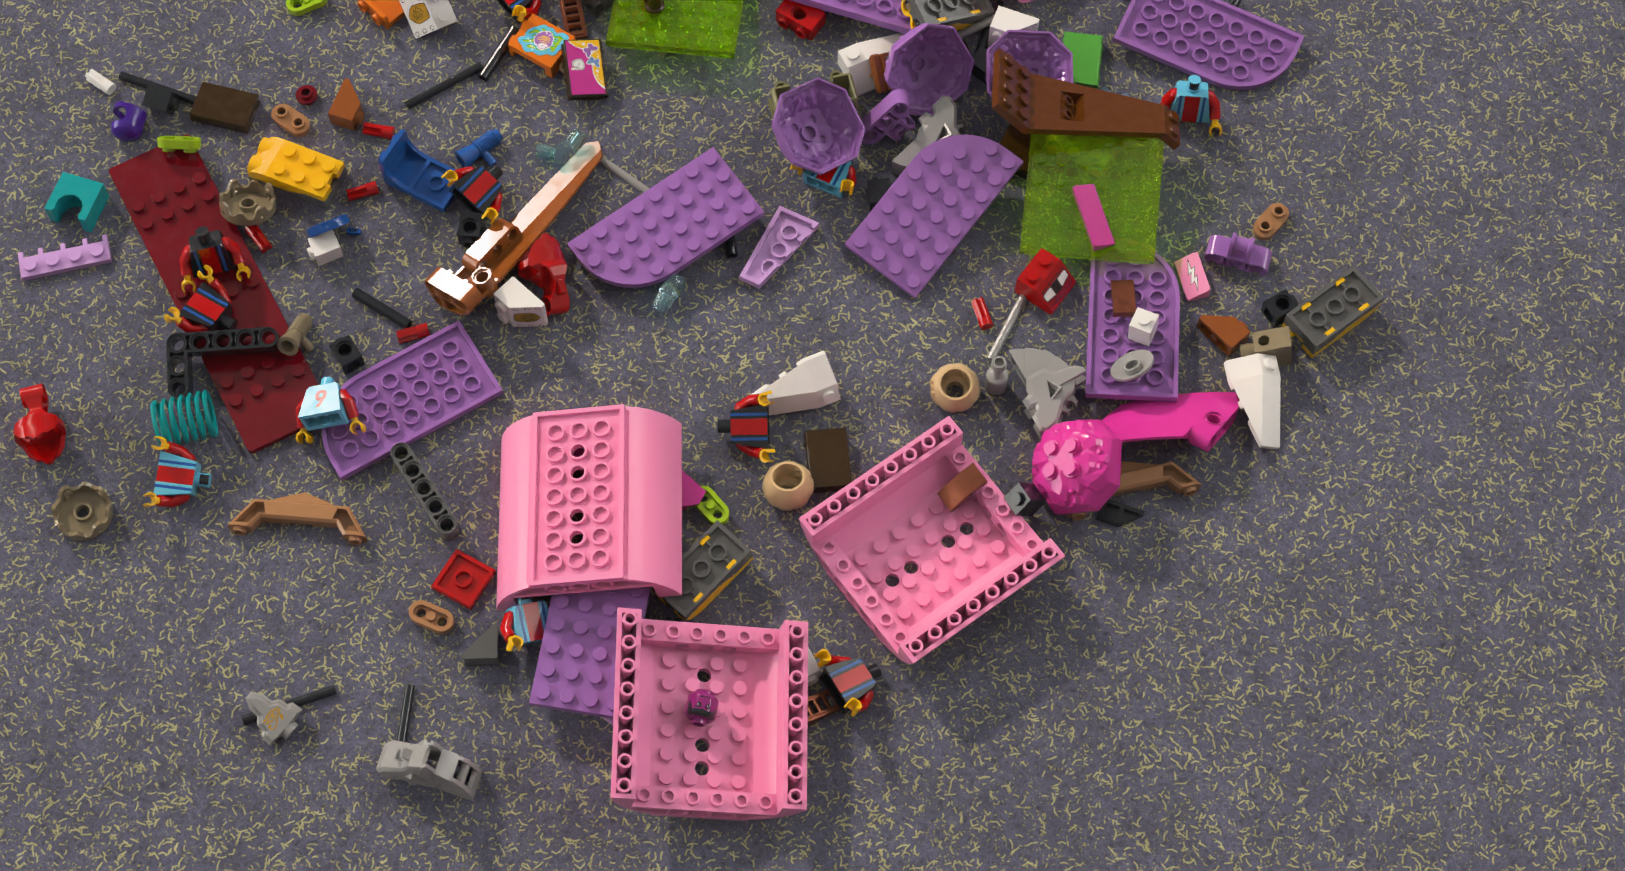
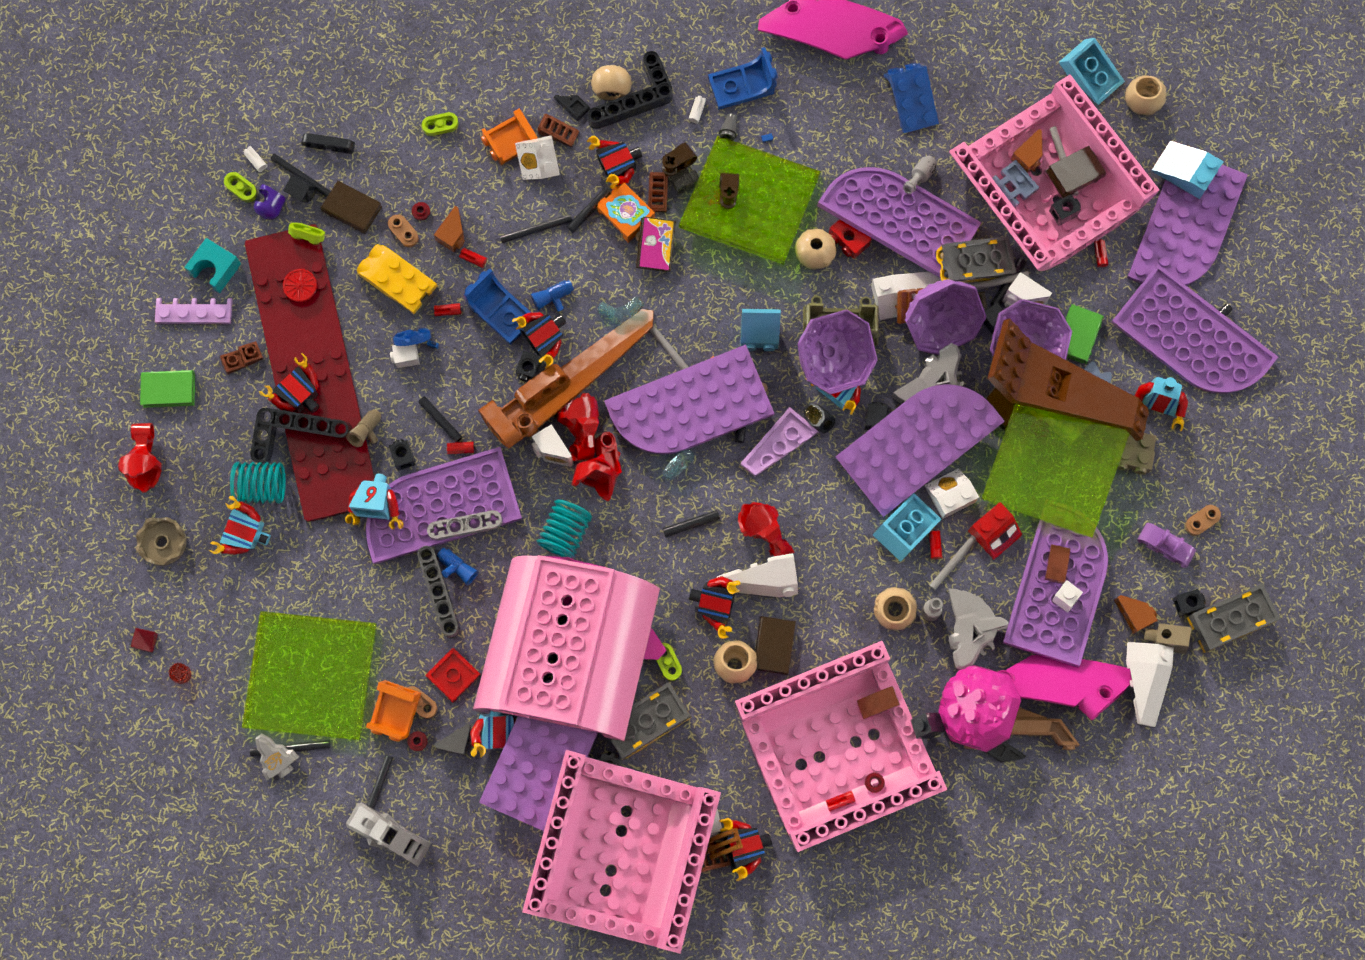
camera: 15 degrees right, 10 degrees up
(52, 346) = (167, 388): none -> bright green piece
(86, 625) = (144, 640): none -> dark red slope
(92, 114) = (241, 187): none -> lime plate
(134, 647) = (176, 672): none -> clear red wheel
(135, 293) = (241, 358): none -> copper slope
(172, 46) = (322, 142): none -> black beam
(184, 200) = (299, 285): none -> red wheel
(212, 250) = (310, 341): torso -> none
(237, 197) = (348, 291): dark tan plate -> none
(258, 237) = (353, 331): red piece -> none
(293, 619) = (309, 675): none -> clear neon green plate
(298, 509) = (336, 582): medium nougat helmet -> none
(404, 630) = (394, 710): none -> orange panel
(437, 408) = (464, 522): none -> light grey beam
(438, 458) = (456, 565): none -> blue piece
(439, 667) = (423, 743): none -> dark red plate
(560, 388) = (558, 527): none -> teal piece
(581, 316) = (602, 469): none -> red piece
(699, 354) = (691, 523): none -> black piece
(701, 707) = (617, 842): magenta head -> none
(725, 126) = (760, 329): none -> medium azure slope
(765, 36) = (811, 257): none -> tan piece
(781, 331) = (761, 522): none -> red piece
(813, 691) = (712, 847): none -> pearl gold tile
(816, 209) = (819, 418): none -> black rock
(889, 118) = (900, 351): medium lavender piece -> none
(944, 301) = (907, 527): none -> medium azure slope
(946, 604) = (840, 800): none -> red piece
(983, 570) = (881, 782): none -> dark red plate
(986, 255) = (952, 493): none -> white slope
(1093, 216) = (1051, 486): dark pink slope -> none
(1132, 365) = (1048, 629): light grey dish -> none
(1180, 168) = (1138, 454): none -> dark tan plate
(1192, 277) = (1122, 555): bright pink slope -> none

